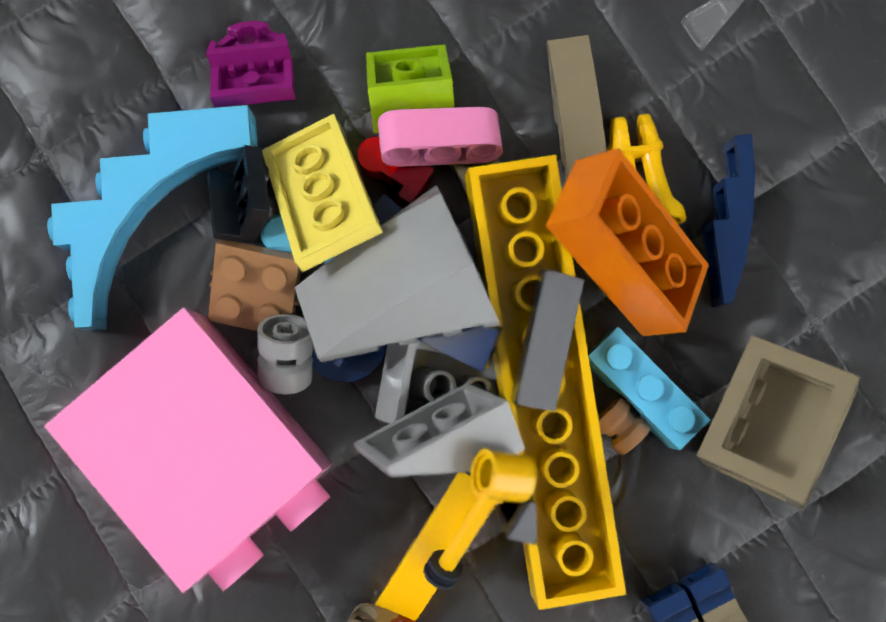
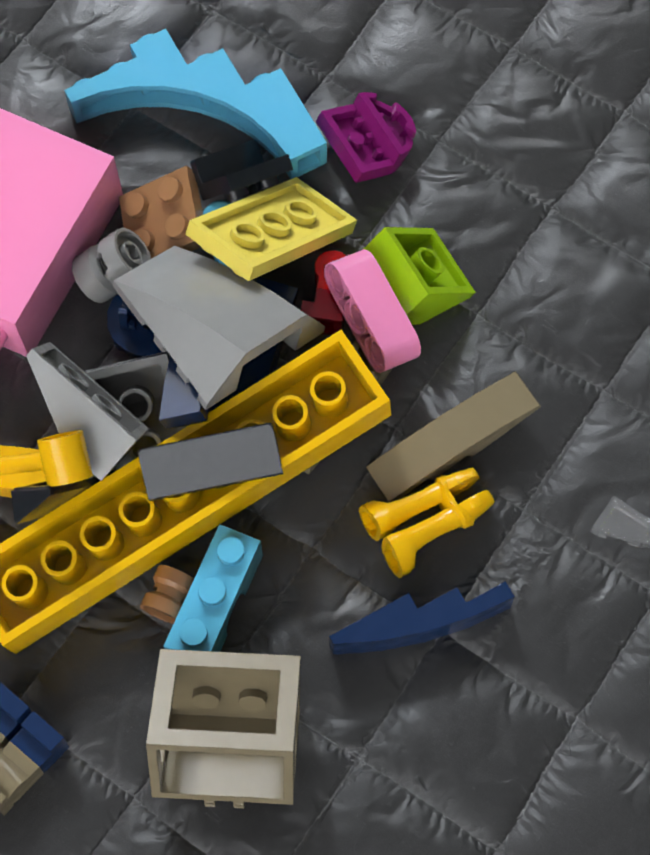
camera: 70 degrees right, 15 degrees down
(629, 243) = (337, 507): orange brick -> none

